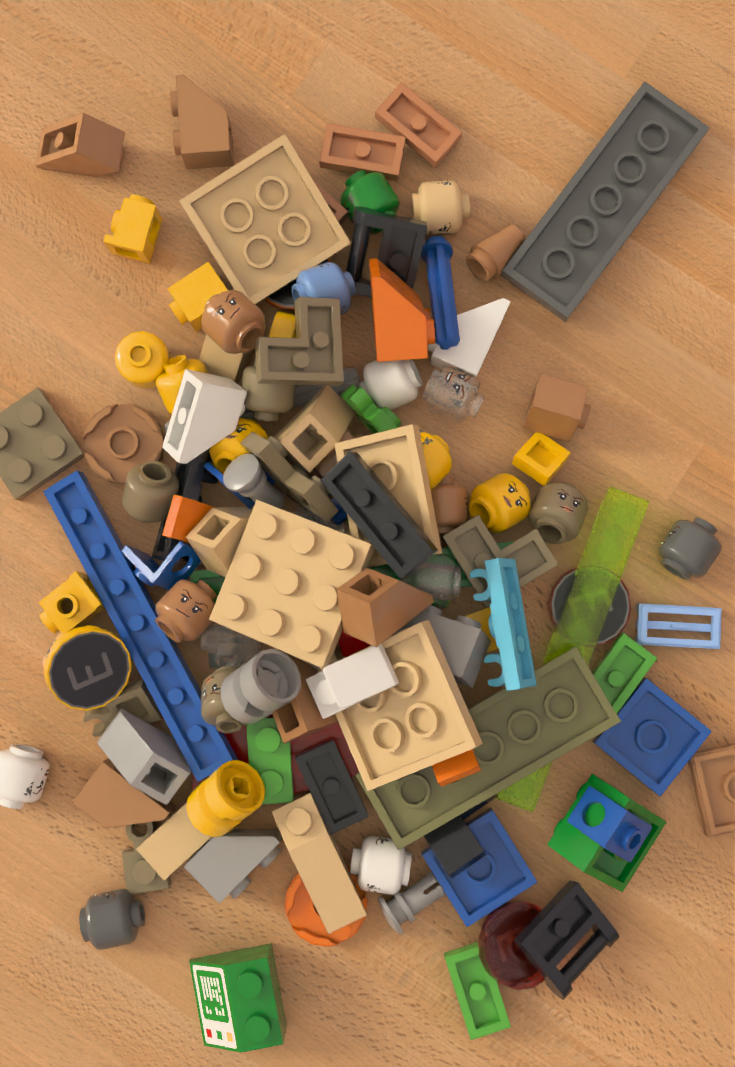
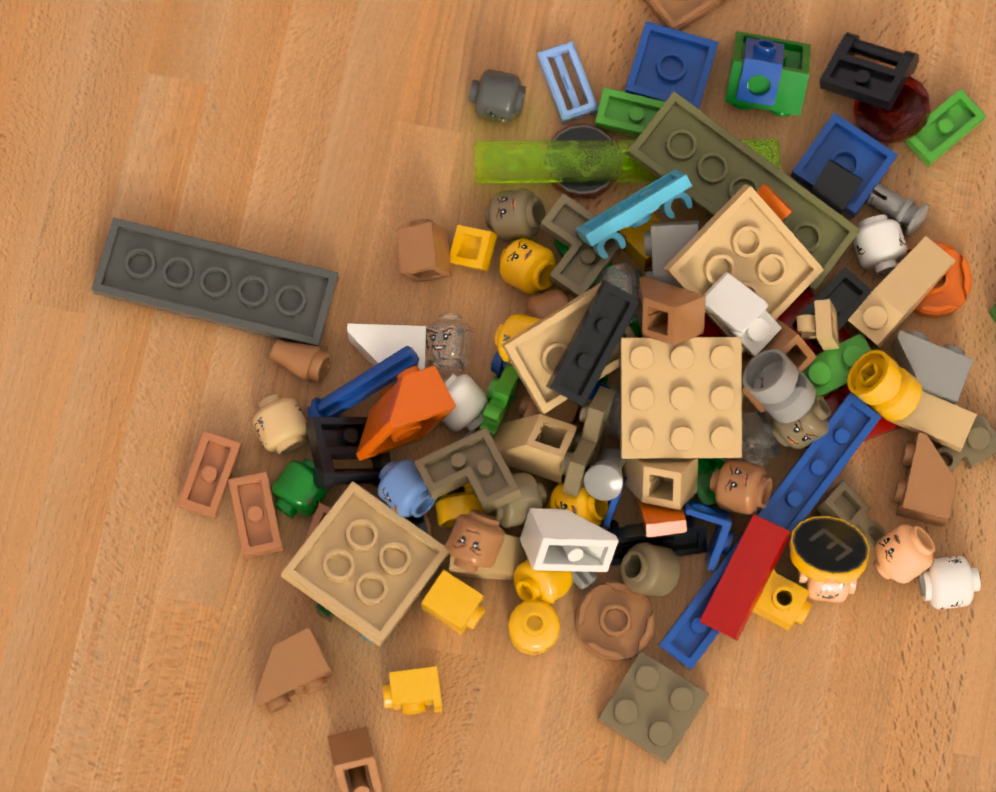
camera: 120 degrees left, 10 degrees down
(60, 743) = (904, 553): none -> light nougat head
(98, 575) = (745, 577): none -> red tile
(145, 756) = (880, 473): light grey slope -> none
(310, 763) = (821, 325): none -> tan tile

